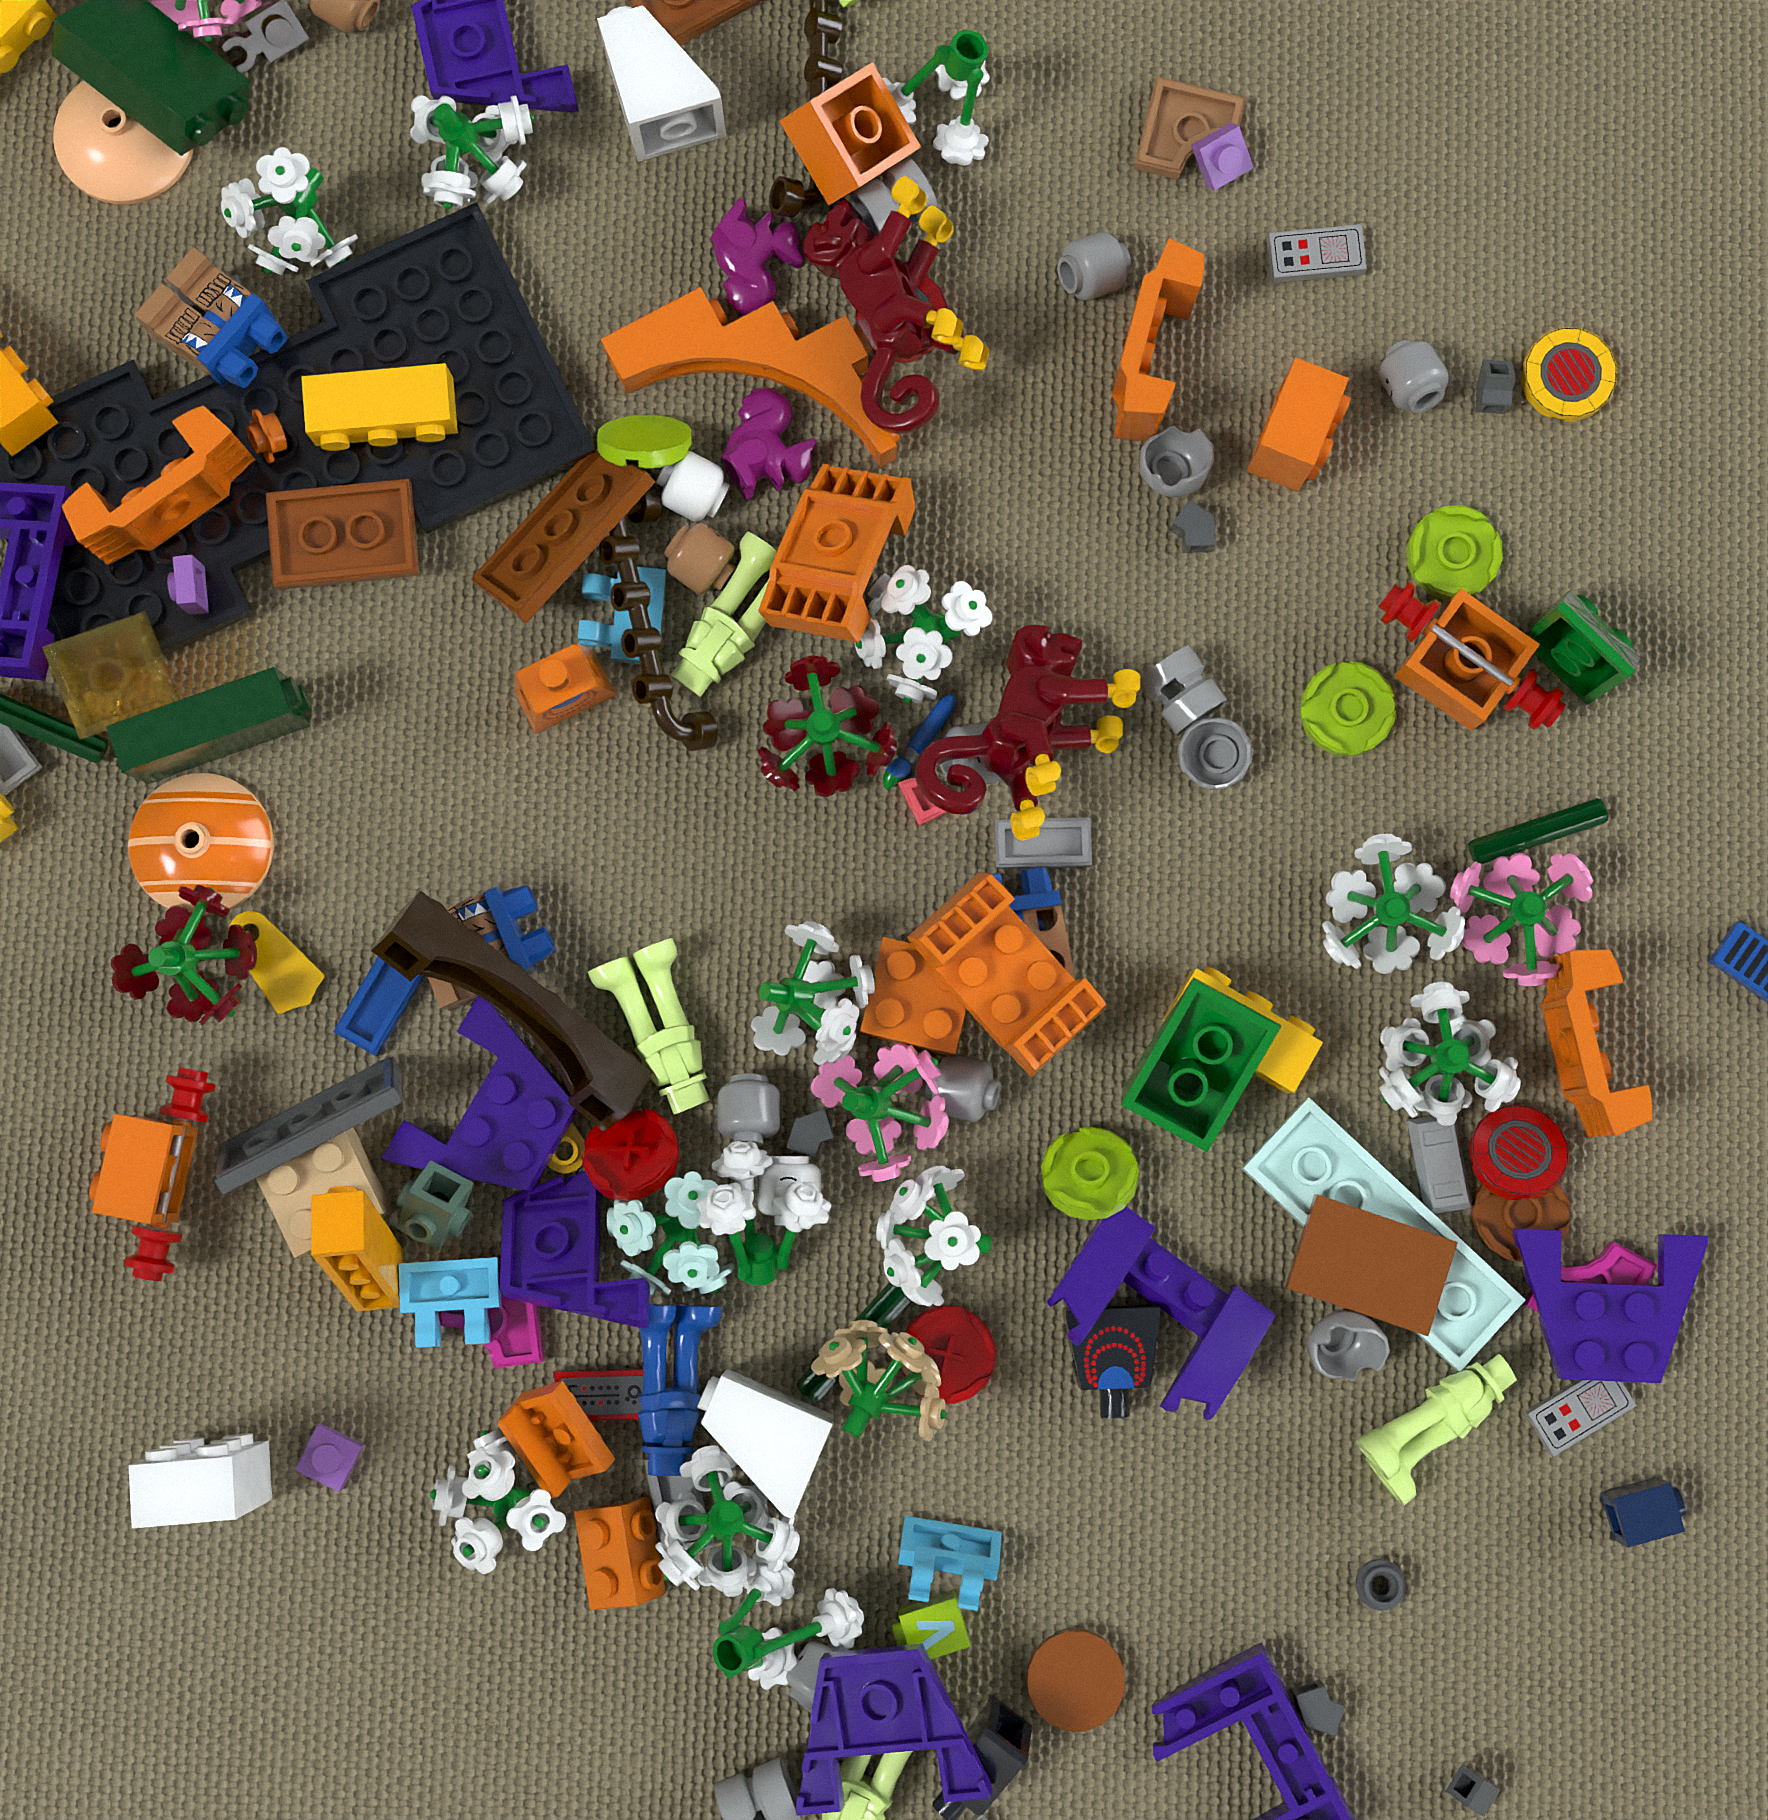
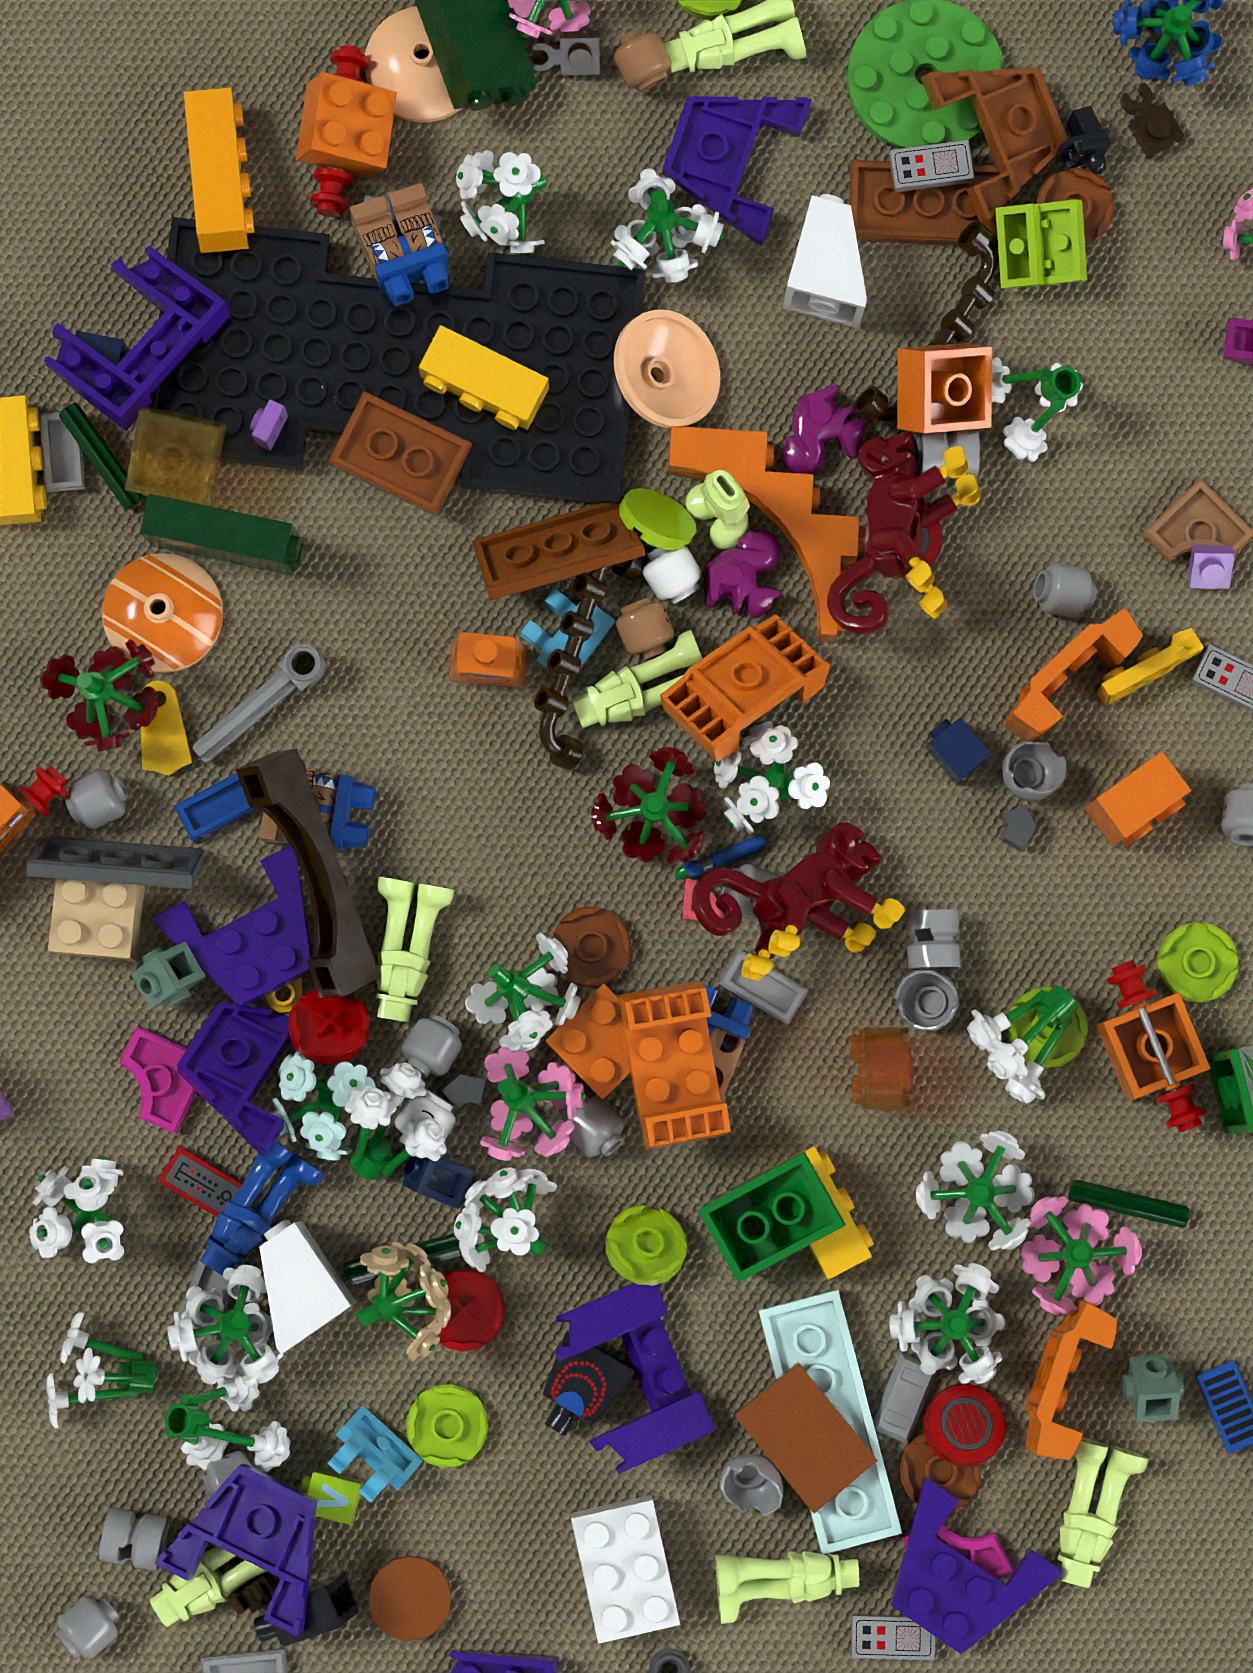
camera: 30 degrees right, 0 degrees up
(82, 244) = (344, 129): none -> orange brick
(170, 502) = (293, 359): orange plate -> none
(250, 1072) = (97, 799): none -> light grey head
(266, 435) = (389, 349): orange plate -> none
(356, 1248) = (96, 974): light orange brick -> none
(357, 870) = (260, 702): none -> light grey axle
(450, 1286) = (143, 1039): medium azure plate -> none
(554, 1437) = (150, 1192): orange bracket -> none
(559, 285) = (680, 360): none -> light nougat dish
(619, 1554) = (145, 1303): orange bracket -> none
(652, 1638) = (131, 1377): none -> plant
(700, 374) = (720, 498): none -> yellowish green piece
(839, 1240) = (437, 1179): none -> dark blue bracket
(850, 904) = (595, 945): none -> dark orange tile
(916, 1780) = (254, 1594): none -> dark brown plate
(1003, 1481) = (447, 1425): none -> lime tile
(1086, 487) = (956, 749): none -> dark blue brick
(1216, 847) = (883, 1068): none -> clear orange brick
(1225, 291) = (1150, 667): none -> yellow hinge
(1274, 1511) = (625, 1569): none -> white brick
(1337, 758) = (1008, 1059): none -> plant
(1680, 997) = (1153, 1387): none -> sand green brick
(1702, 1185) = (1088, 1535): none -> yellowish green piece

